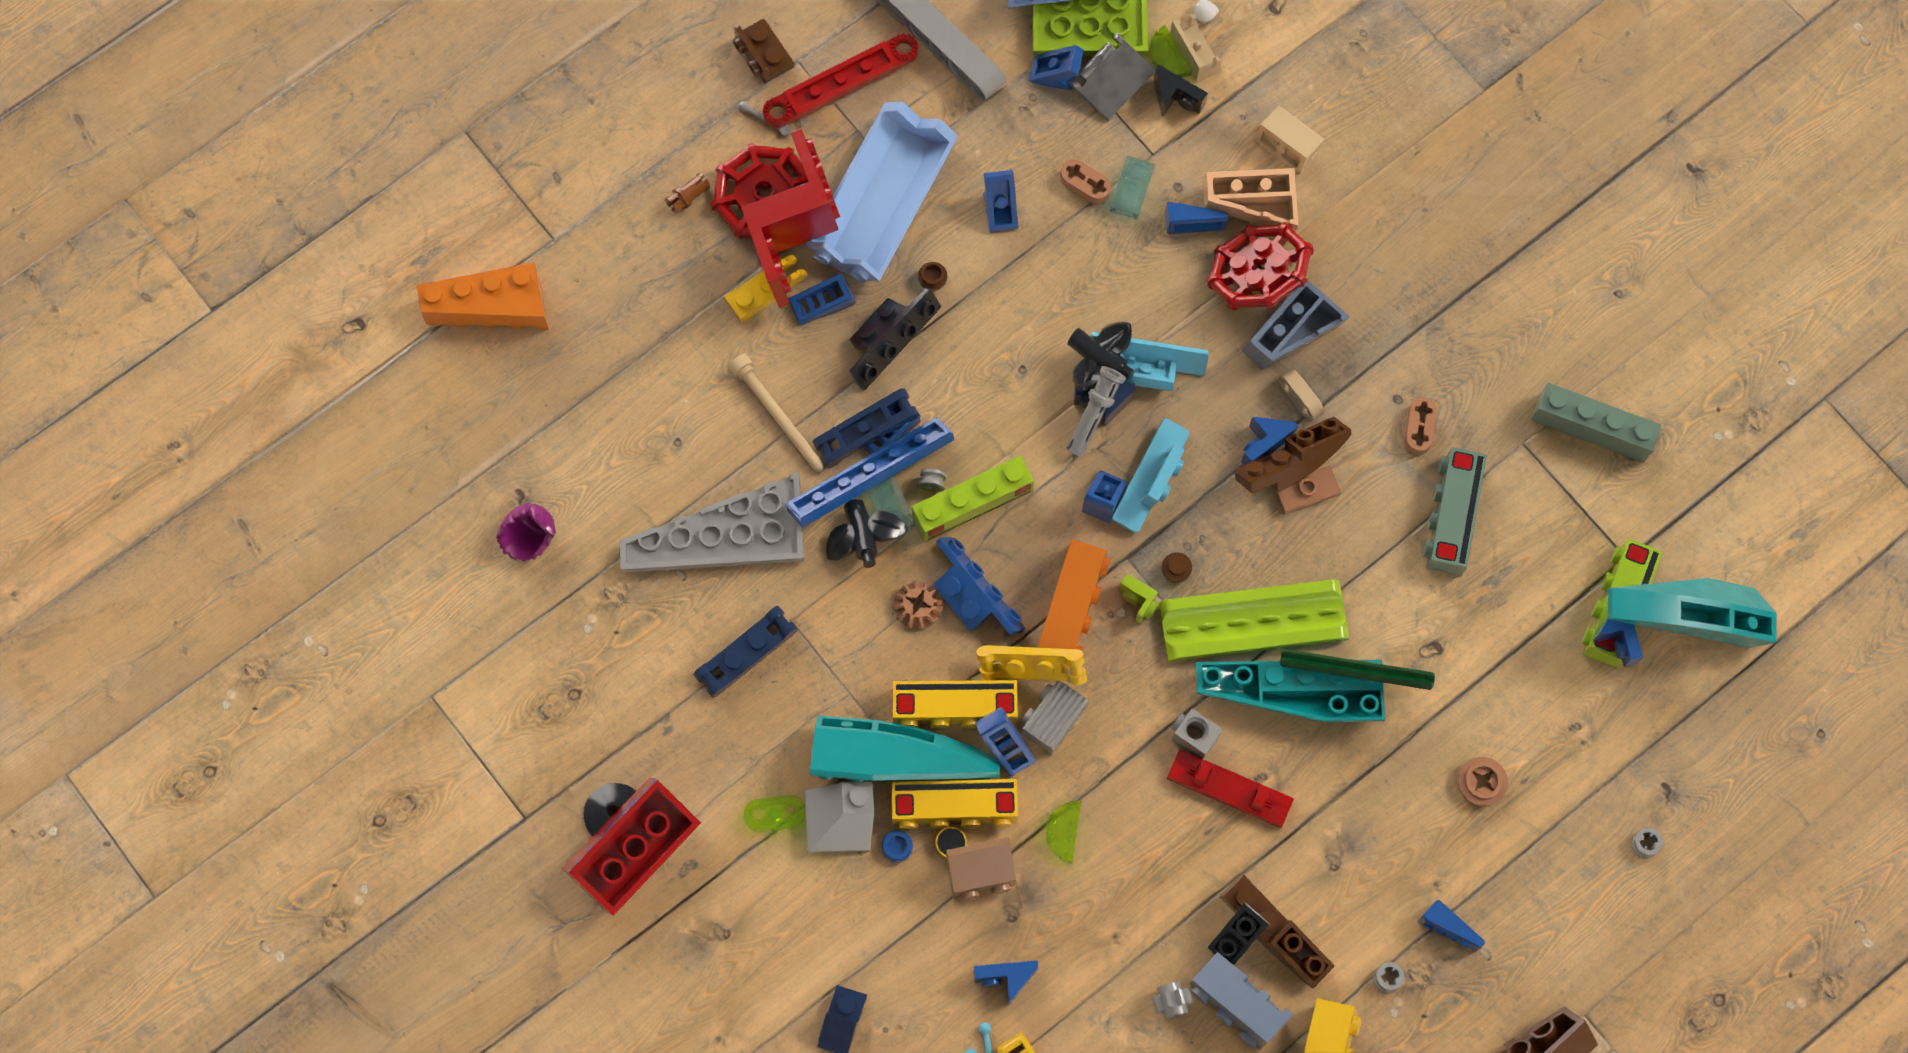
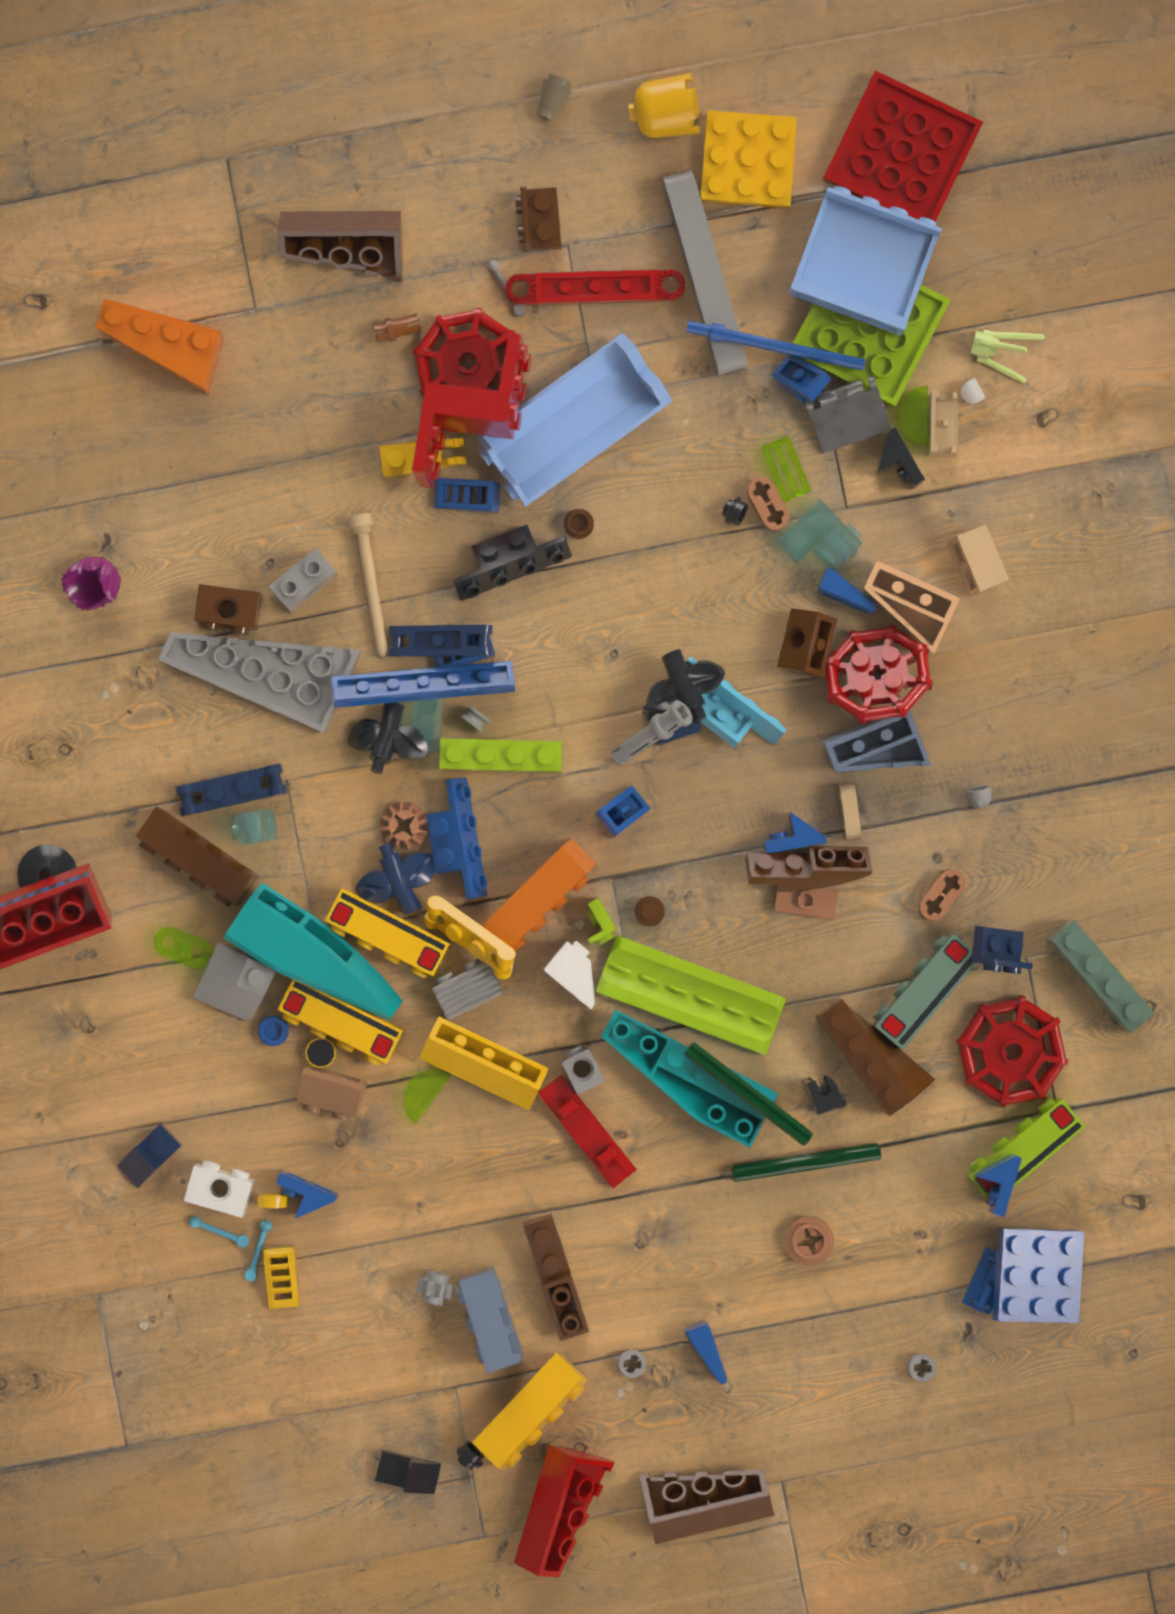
camera: 30 degrees right, 15 degrees up
(605, 142) = (345, 239): none -> reddish brown wedge
(672, 481) = (212, 598): none -> reddish brown brick
(716, 437) = (303, 580): none -> light grey brick
(746, 723) = (197, 856): none -> reddish brown wedge
(785, 671) = (255, 827): none -> clear light blue brick
(910, 1028) = (201, 1190): none -> white brick
(938, 652) = (397, 879): none -> dark blue plant
(967, 59) = (717, 333): none -> blue bar
(979, 1000) = (272, 1200): none -> yellow tile
(995, 726) = (411, 989): blue slope -> none
(1000, 200) = (677, 485): blue slope -> none
(1061, 200) = (735, 511): none -> black plate
(1091, 139) = (796, 463): none -> clear neon green tile
(1105, 771) = (483, 1063): none -> yellow brick
(1143, 649) = (573, 971): none -> white slope
(1152, 476) = (674, 817): medium azure bracket -> none
(1164, 183) = (838, 545): none -> clear light blue brick
(1184, 272) = (807, 642): none -> reddish brown brick
(1239, 934) = (519, 1264): black slope -> none
(1404, 328) = (979, 796): none -> light grey hinge
(1419, 646) = (827, 1099): none -> black hinge
(1439, 714) = (806, 1162): none -> dark green axle
(1448, 595) = (878, 1062): none -> reddish brown wedge
(1498, 441) = (998, 948): none -> dark blue bracket
(1547, 537) = (994, 1052): none -> red plate
(1658, 734) = (981, 1288): none -> blue hinge
(1698, 609) = (1083, 1196): teal wedge -> none
(1699, 703) = (1038, 1275): none -> plate

